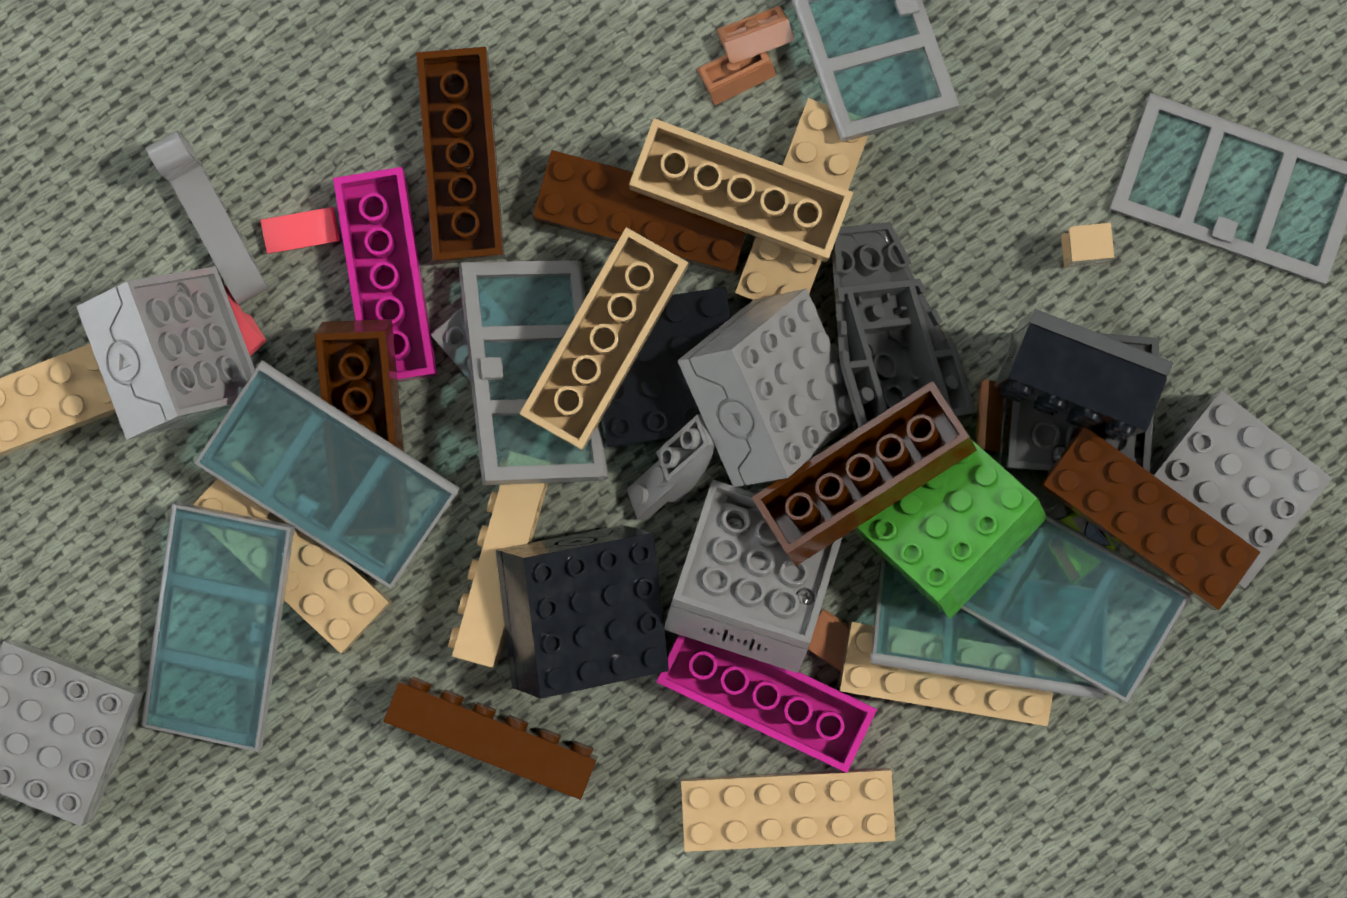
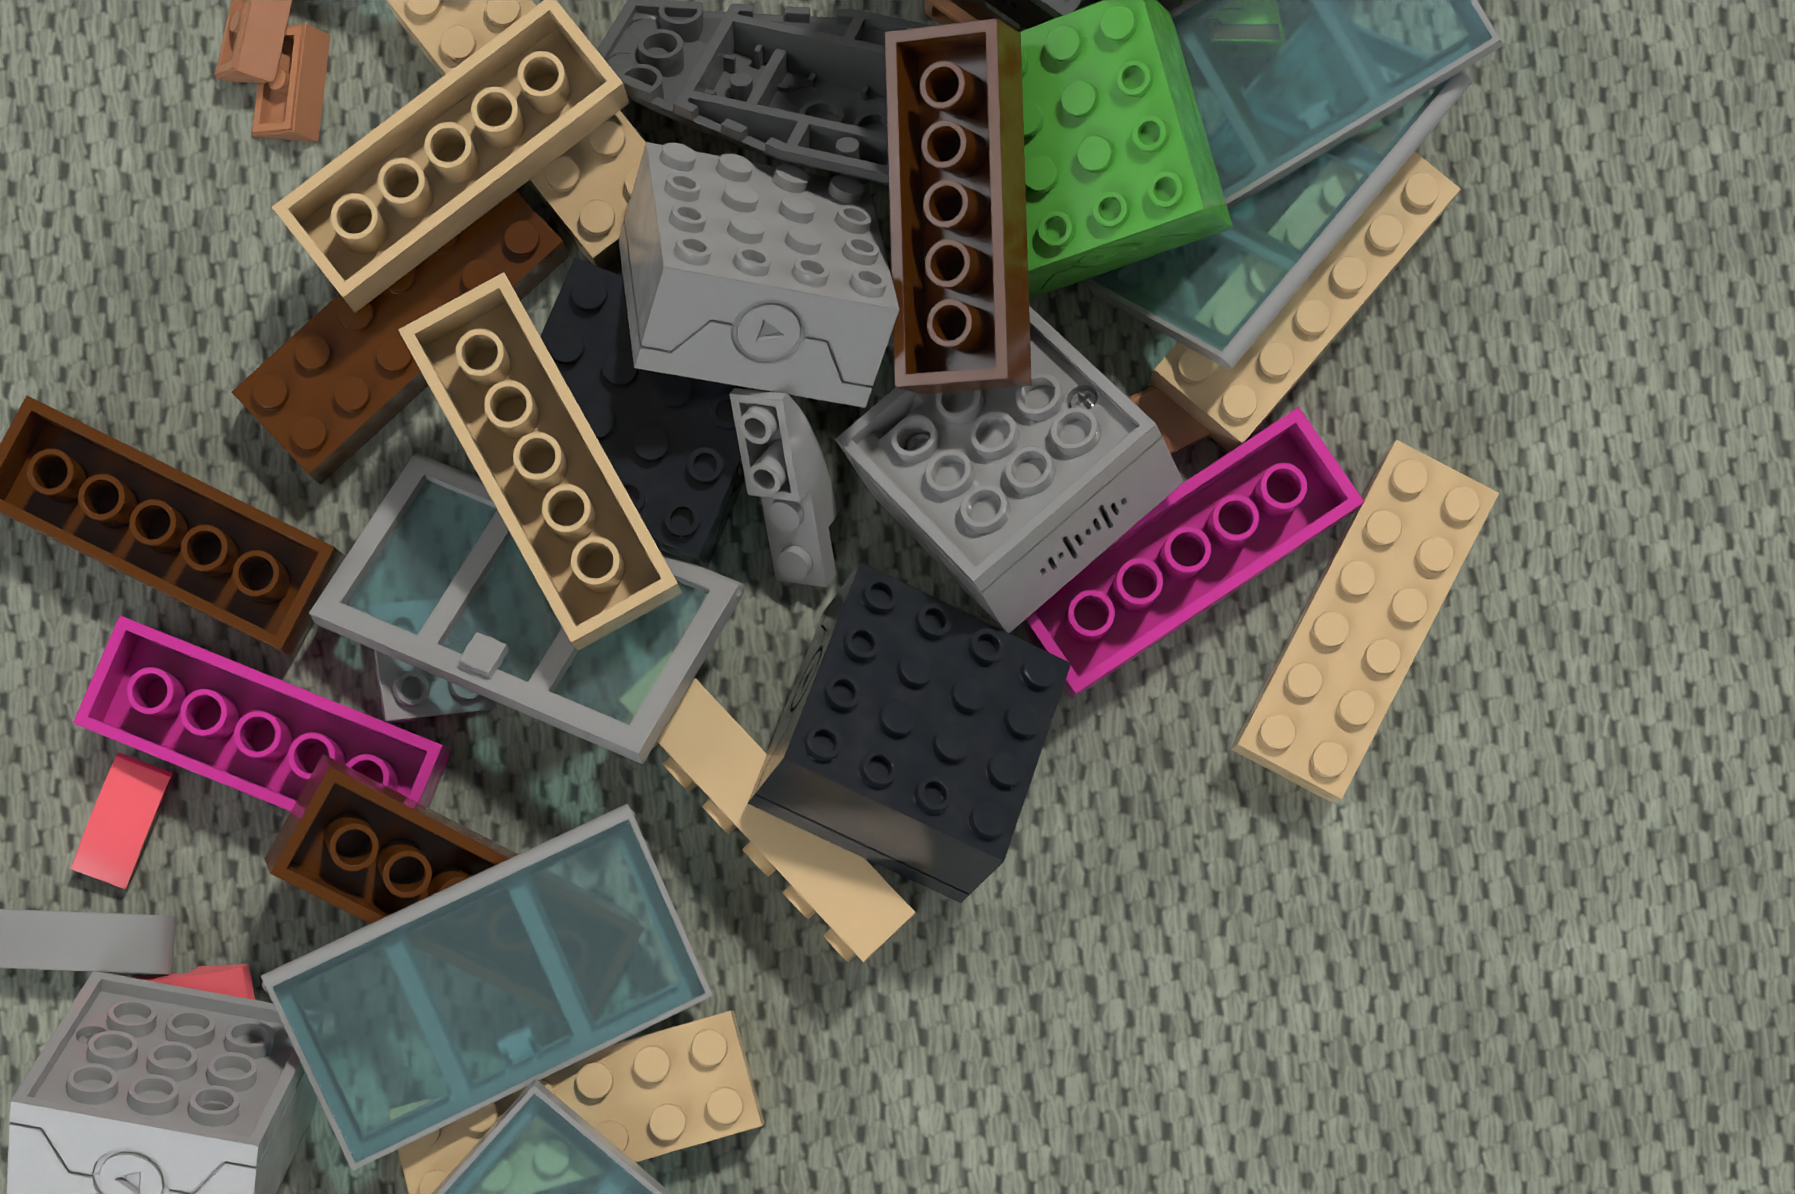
camera: 60 degrees left, 5 degrees down
(491, 738) = (1018, 979): reddish brown brick -> none

